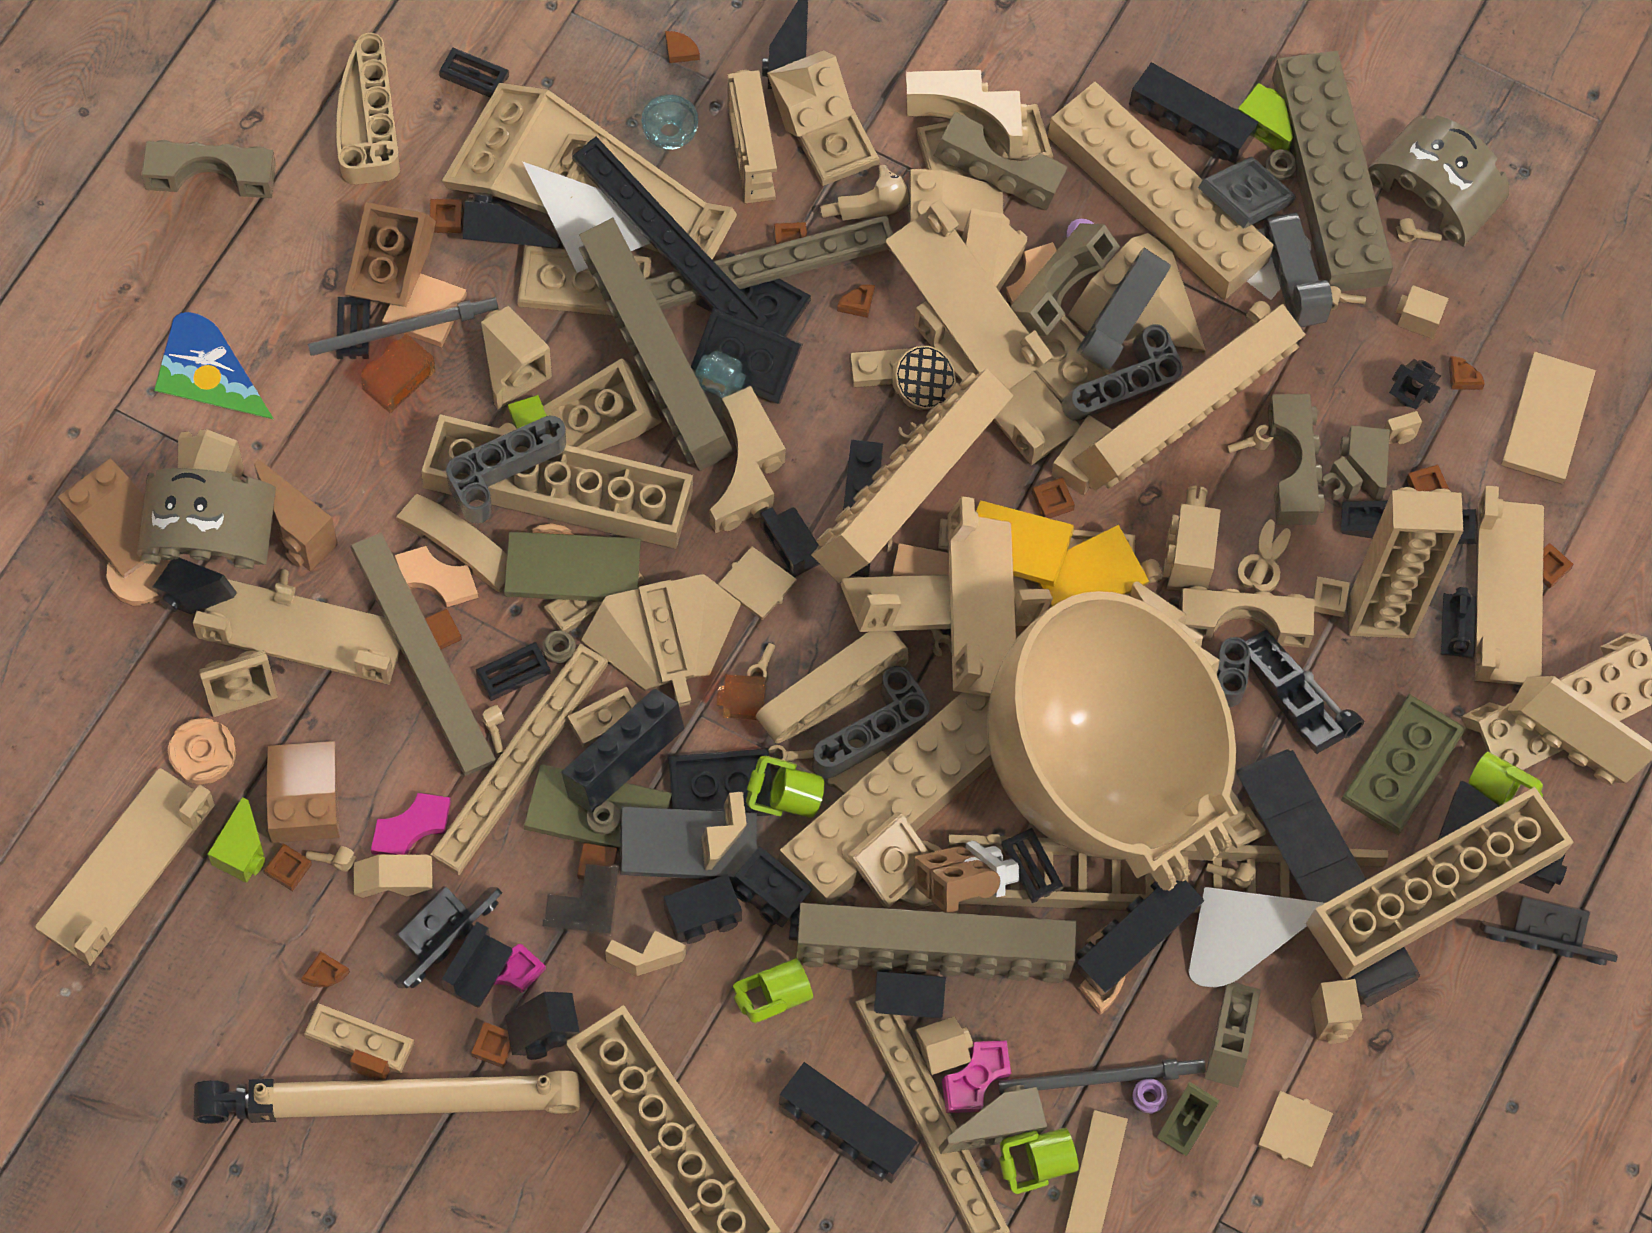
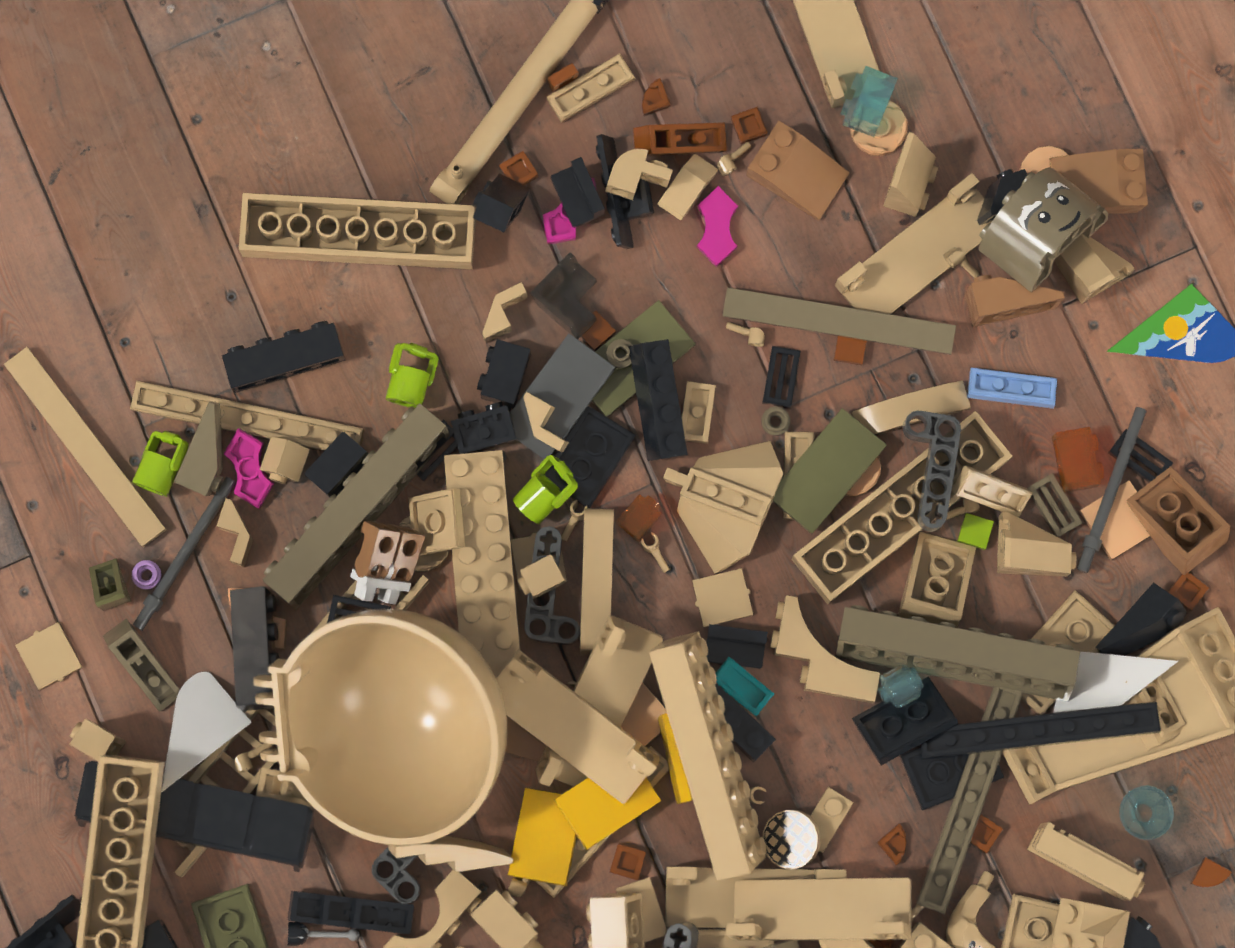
camera: 130 degrees right, 15 degrees up
(185, 765) = (869, 101): none -> clear light blue brick
(238, 845) = (786, 102): lime slope -> none
(353, 916) = (680, 138): none -> dark orange slope
(371, 471) = (1012, 388): none -> light blue tile
(421, 924) = (632, 167): none -> tan brick
(443, 390) = (1076, 521): none -> dark tan tile
(449, 582) = (905, 370): light nougat tile -> none
(484, 412) = (991, 491): none -> tan tile
(519, 759) = (712, 335): tan tile -> none
(822, 506) = (743, 686): none -> teal tile
(869, 727) = (540, 577): none -> tan brick
(937, 505) = (676, 769): none -> yellow tile
(1040, 1051) = (232, 522): none -> tan slope

